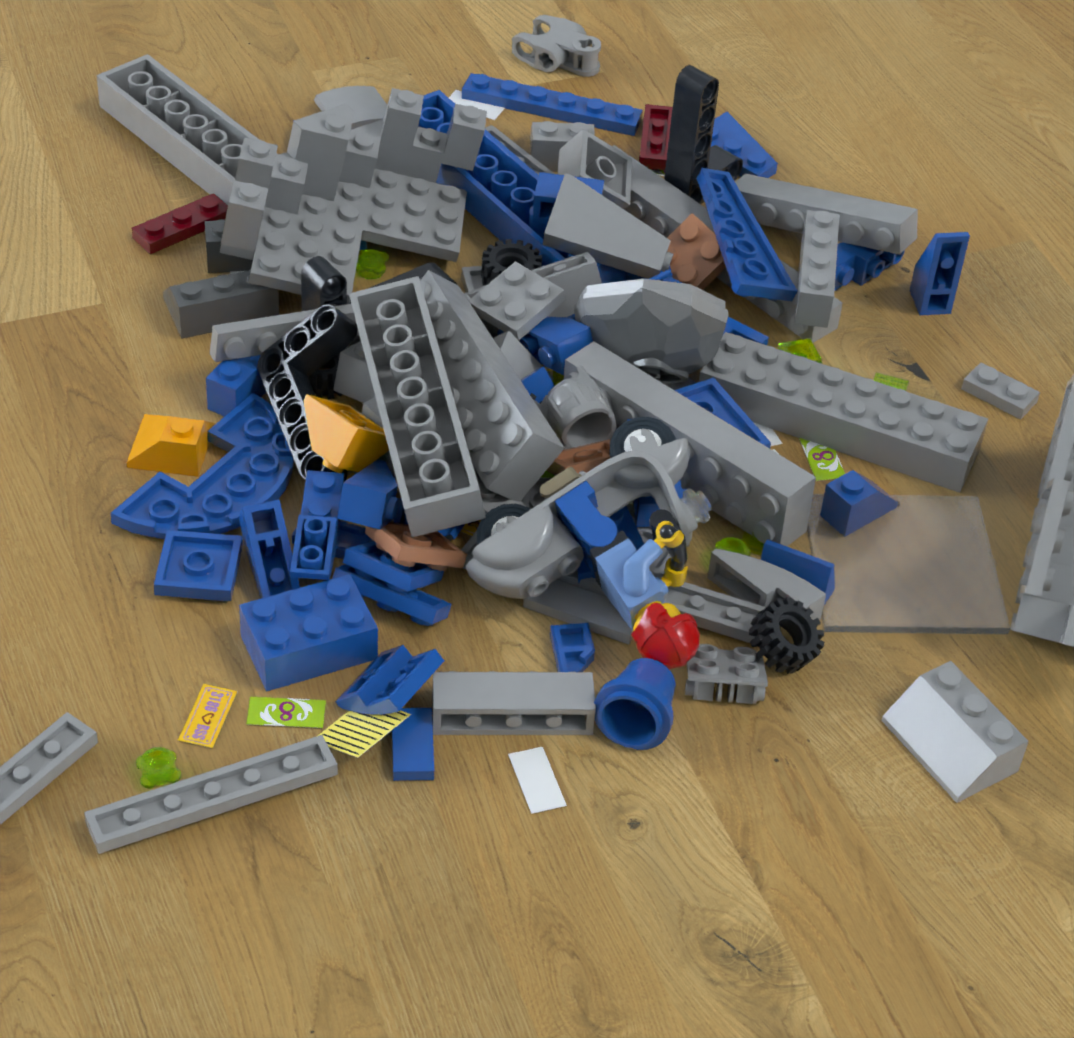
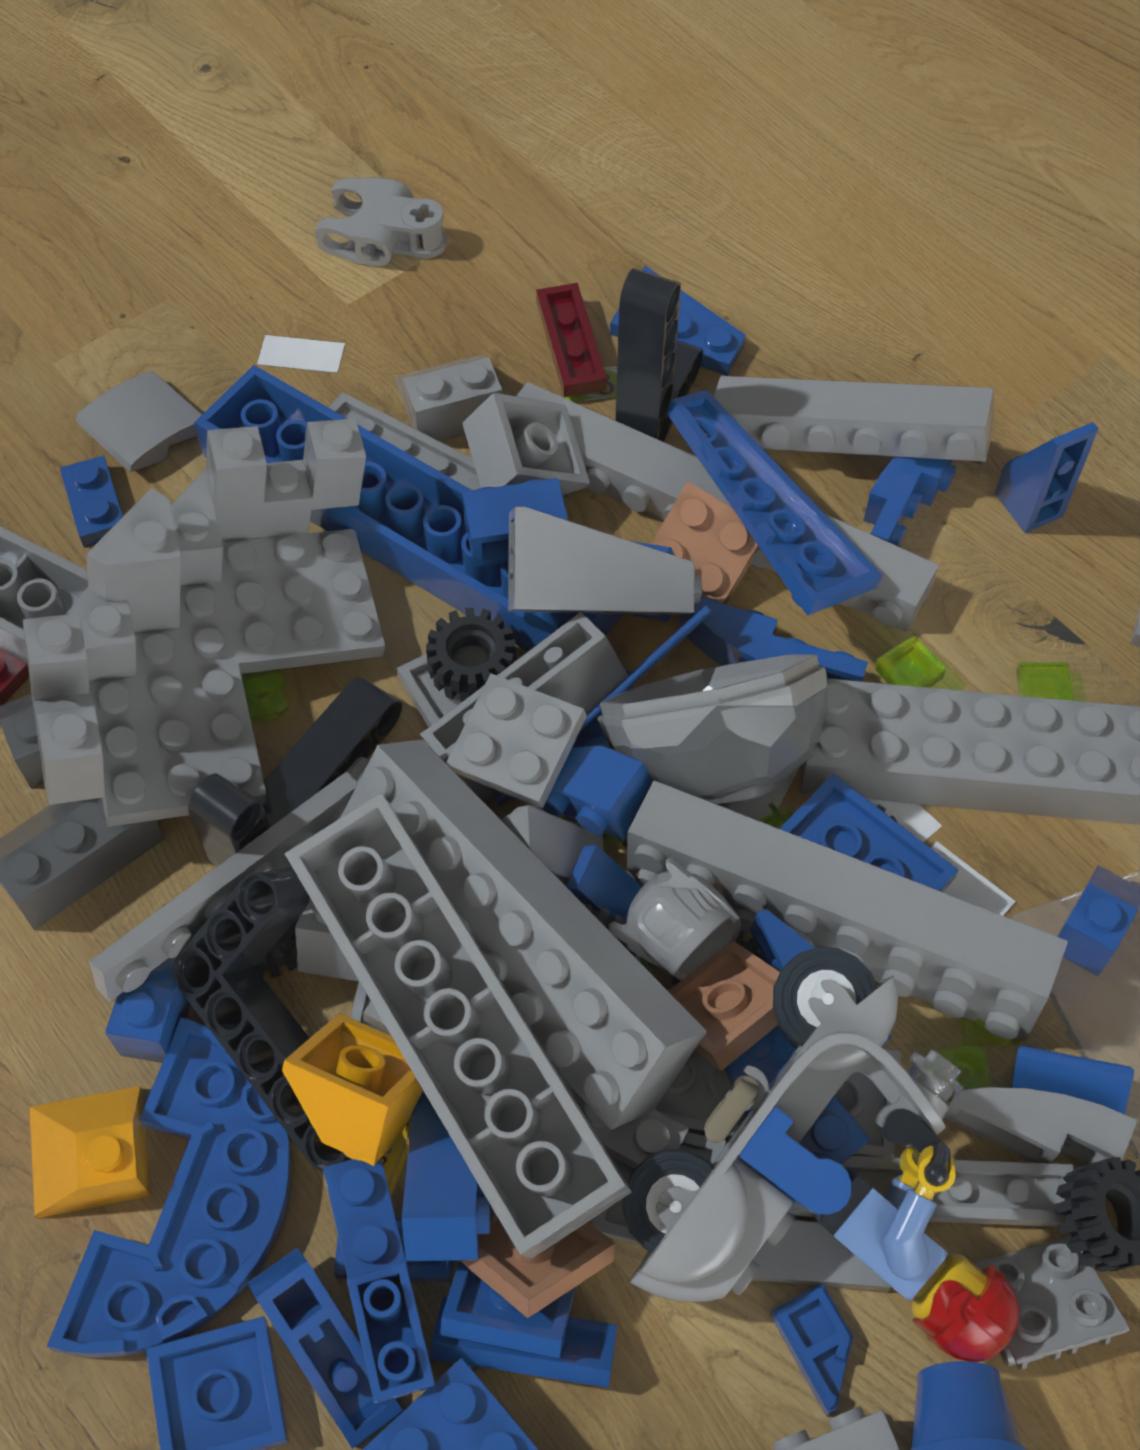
camera: 15 degrees left, 15 degrees up
(552, 104) = (406, 323): blue plate -> none
(817, 269) = (894, 528): light grey brick -> none
(822, 460) = (1008, 839): lime sticker -> none

